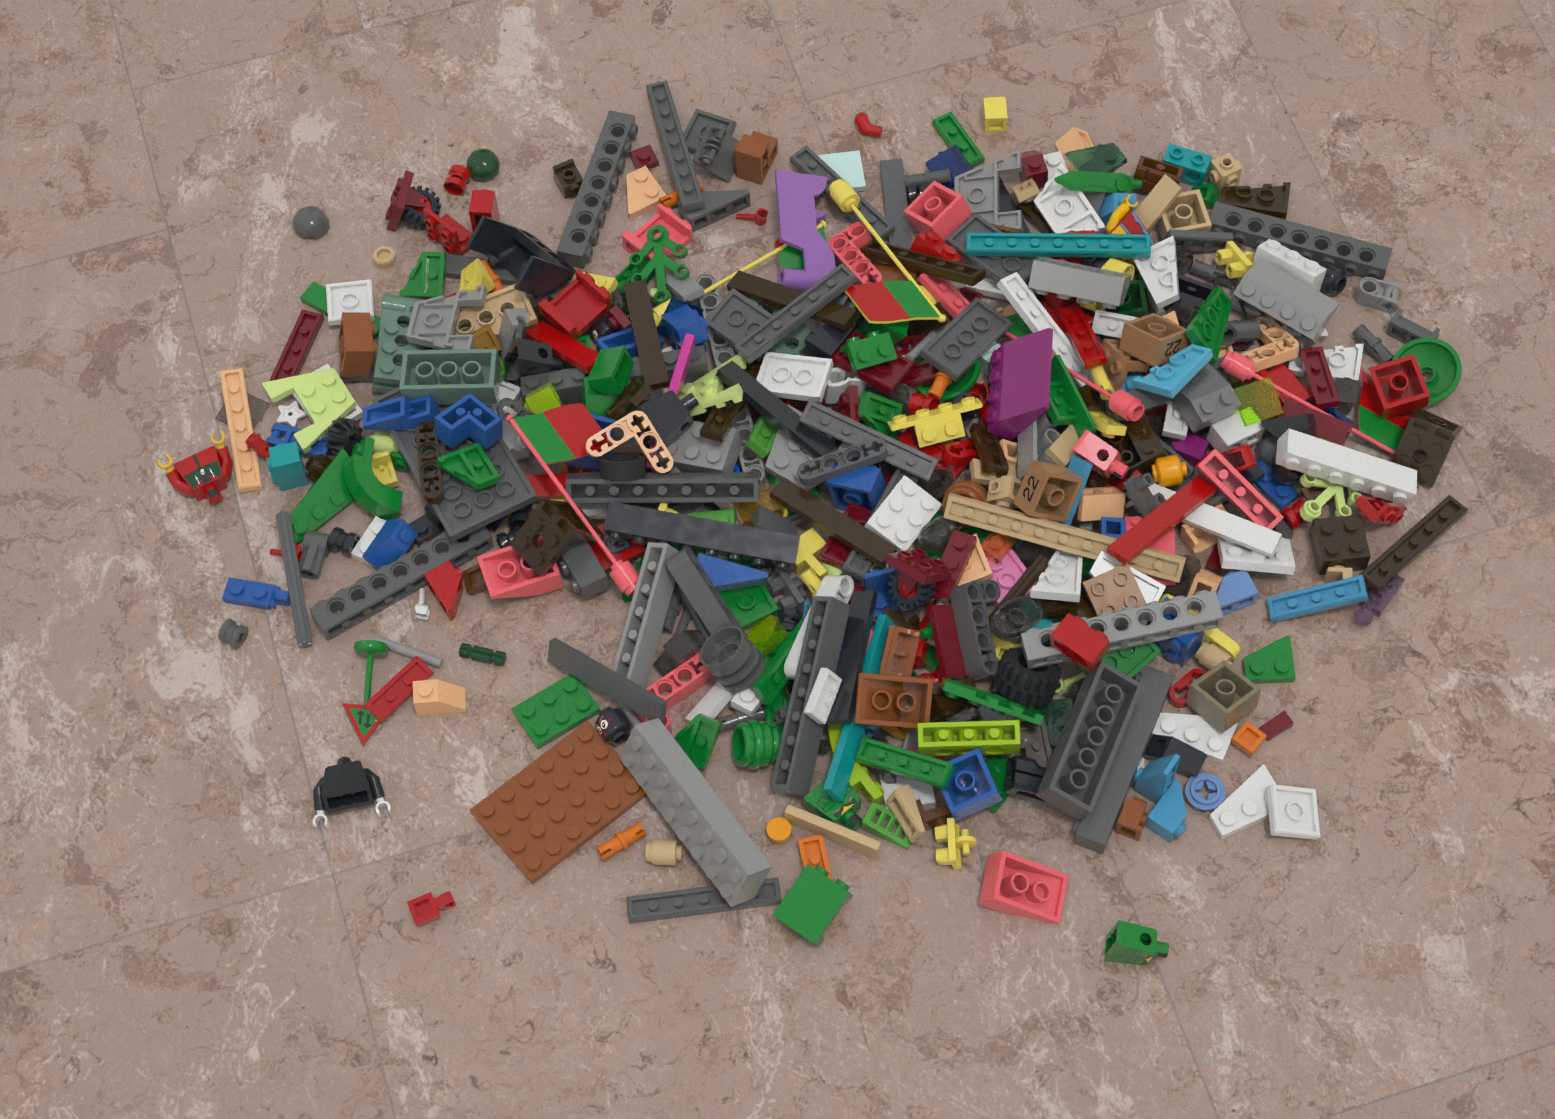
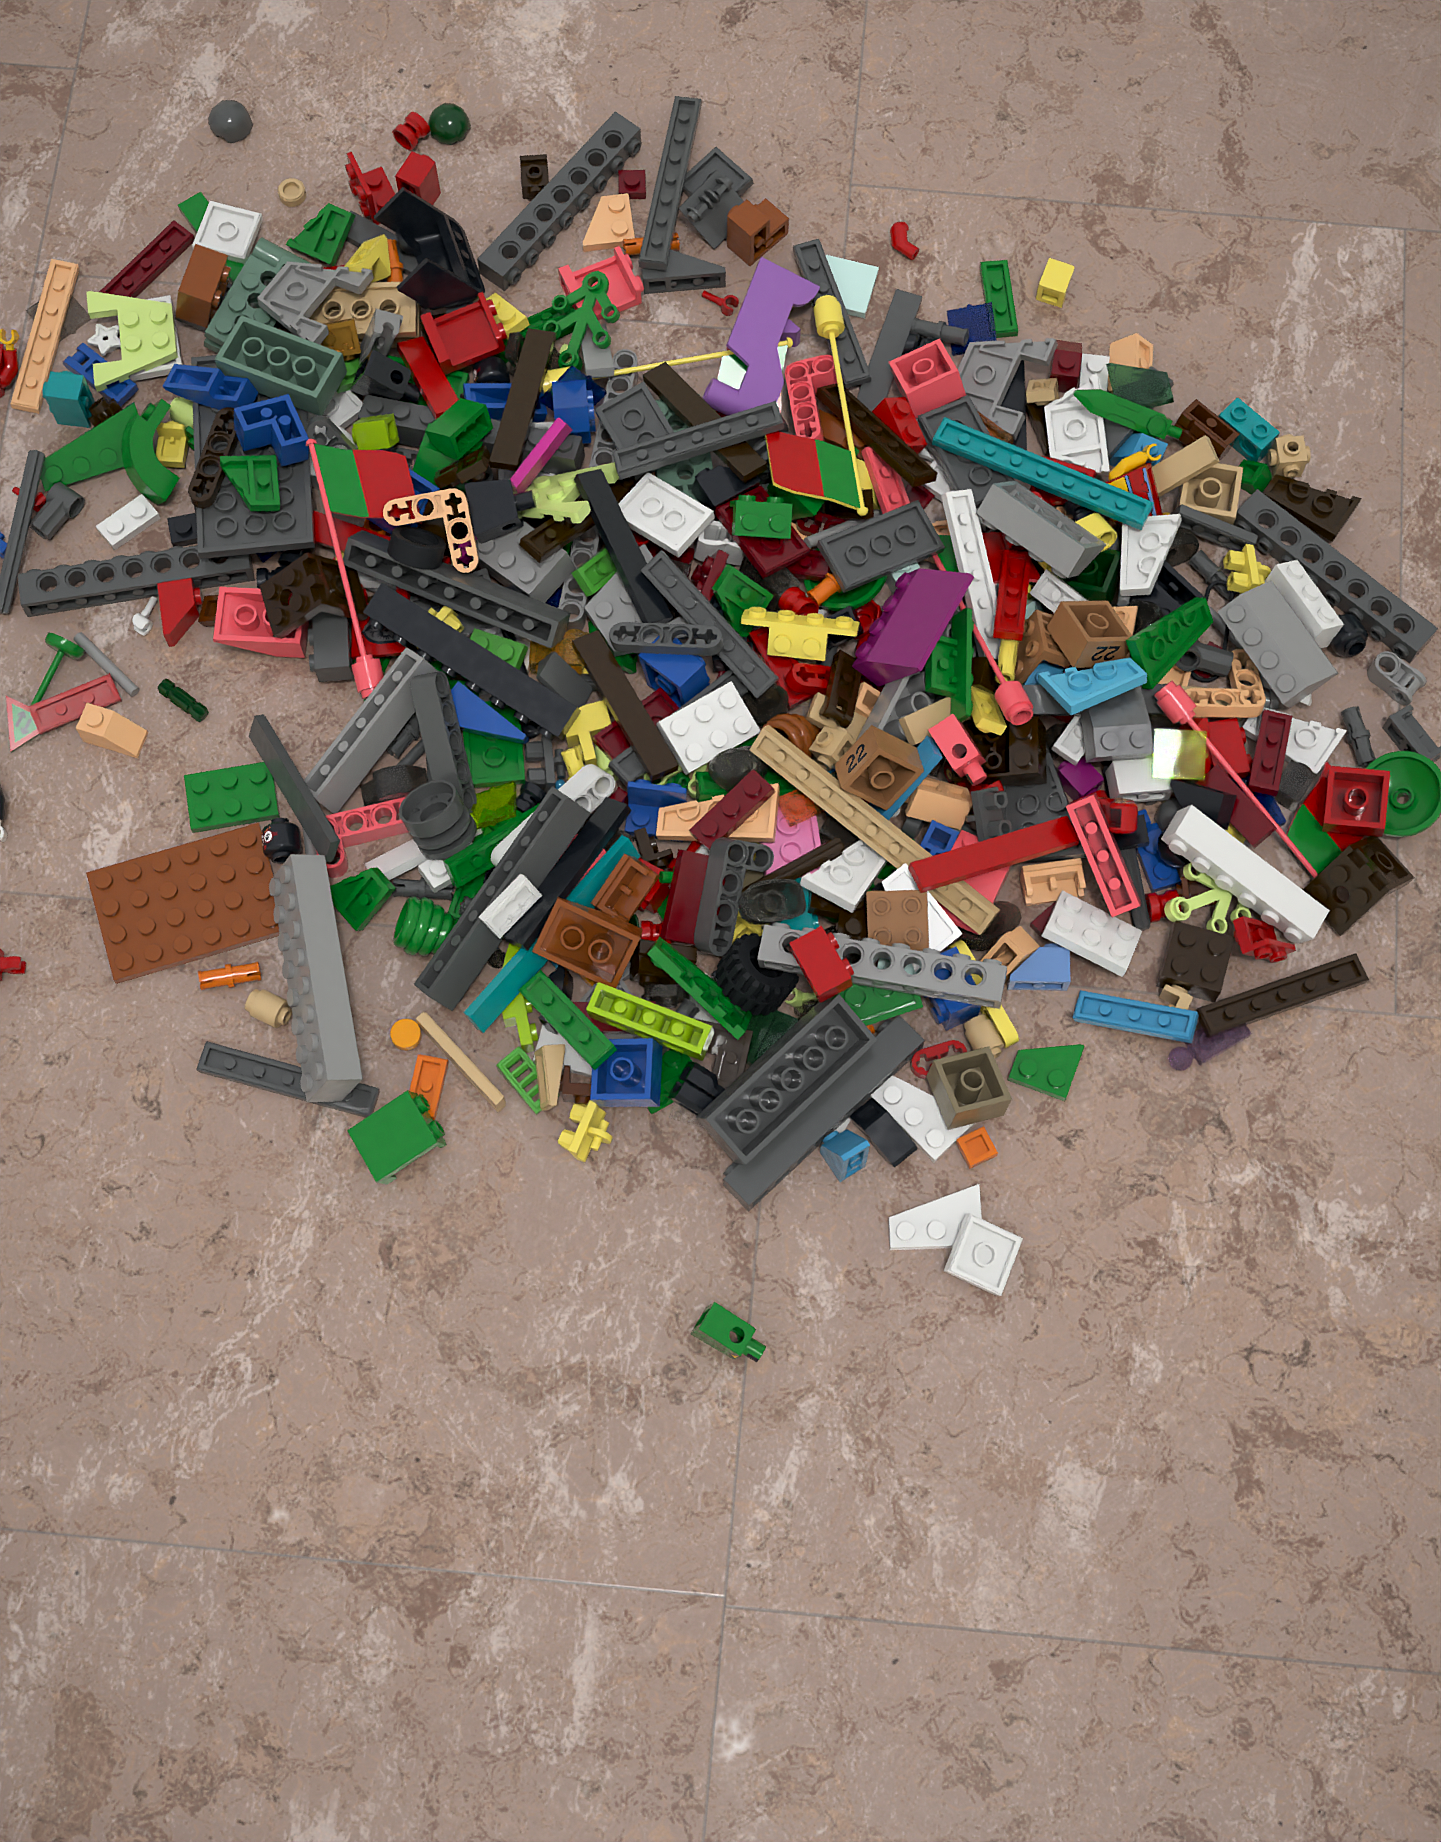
camera: 20 degrees right, 10 degrees up
(258, 445) = (52, 359): red pin -> none
(343, 541) = (91, 507): black wheel -> none
(344, 435) = (145, 387): black gear -> none
(390, 543) = (139, 532): blue slope -> none
(409, 203) = (342, 137): dark red plate -> none
(617, 319) = (500, 368): dark red plate -> none
(839, 812) = (473, 1041): green torso -> none
(915, 577) = (681, 807): dark red plate -> none
(1023, 888) = (639, 1215): coral slope -> none
(1132, 818) = (799, 1185): dark orange brick -> none
(1168, 471) = (1036, 796): light orange head -> none
(1169, 814) = (841, 1198): dark azure slope -> none
(1212, 784) = (890, 1176): medium blue gear -> none
(1228, 526) = (1070, 887): white tile -> none
(1276, 725) = (1016, 1145): dark red piece -> none

